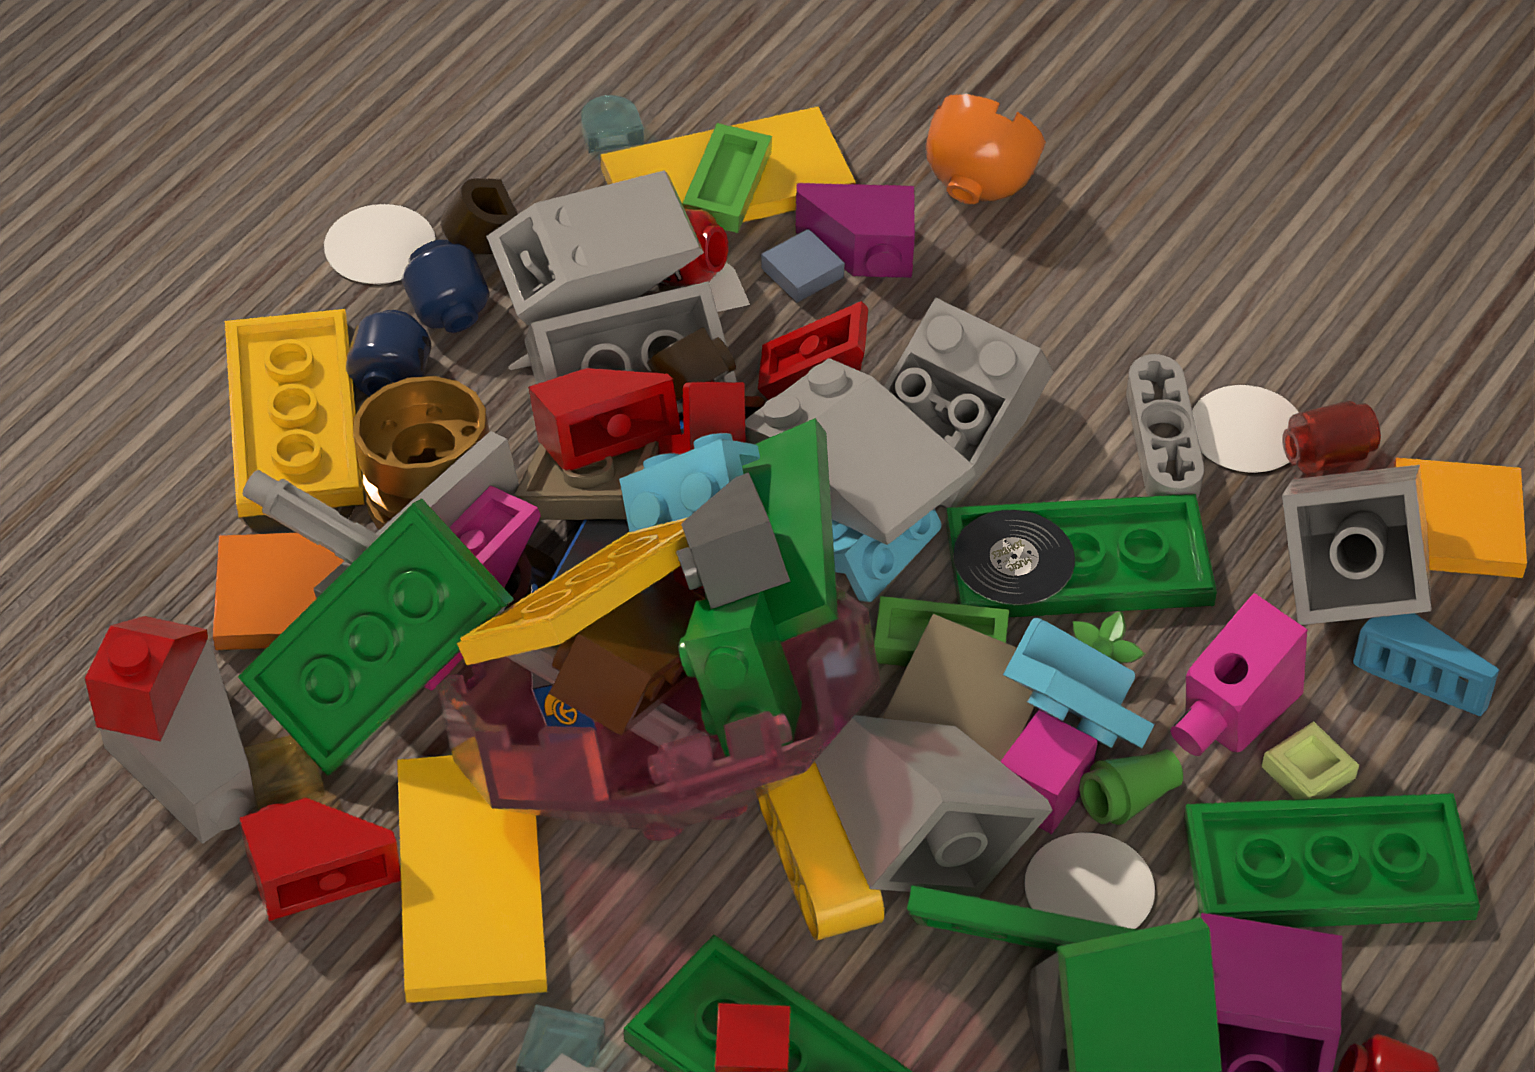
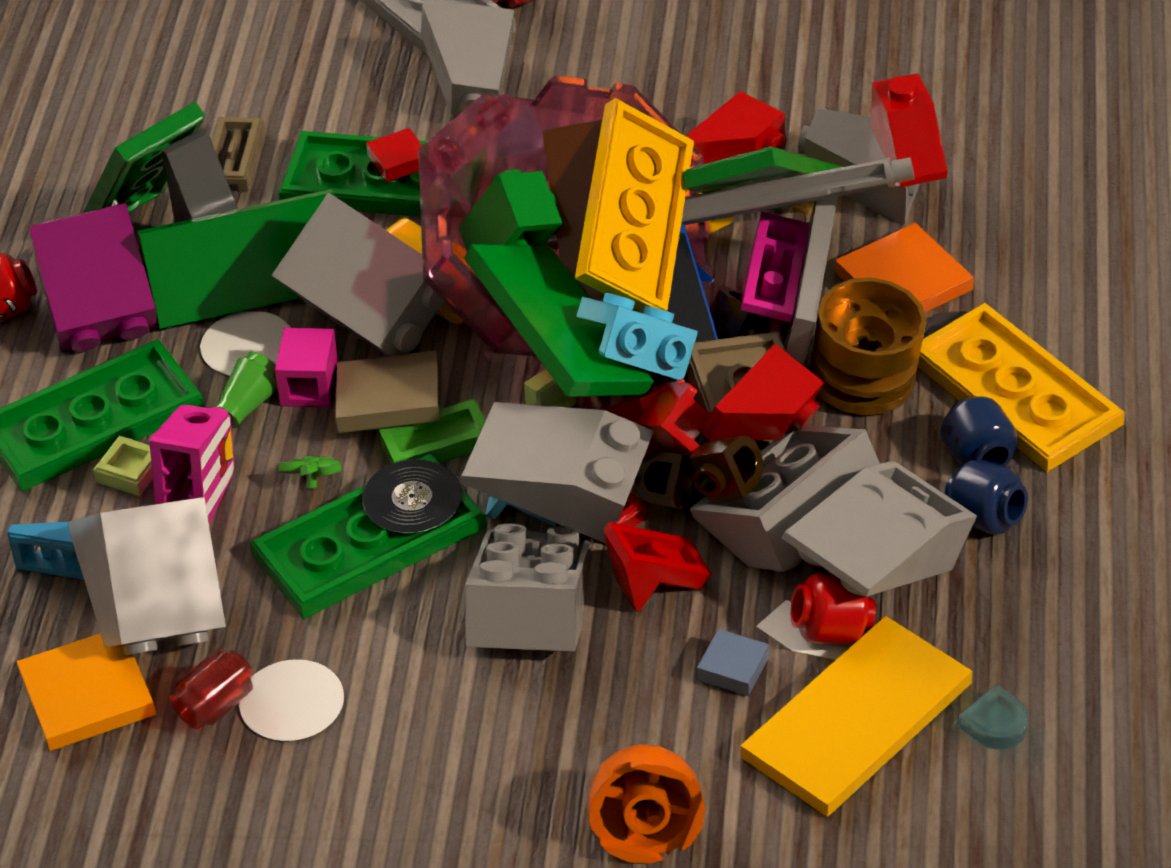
camera: 155 degrees right, 5 degrees down
(376, 242) = (1084, 540): white sticker -> none
(477, 212) = (1008, 558): dark brown plate -> none
(729, 174) = (843, 679): bright green tile -> none
(731, 546) = (553, 240): dark grey slope -> none
(862, 225) = (703, 698): magenta slope -> none
(1077, 680) = (301, 385): medium azure bracket -> none
(1171, 409) = (354, 674): light grey beam -> none

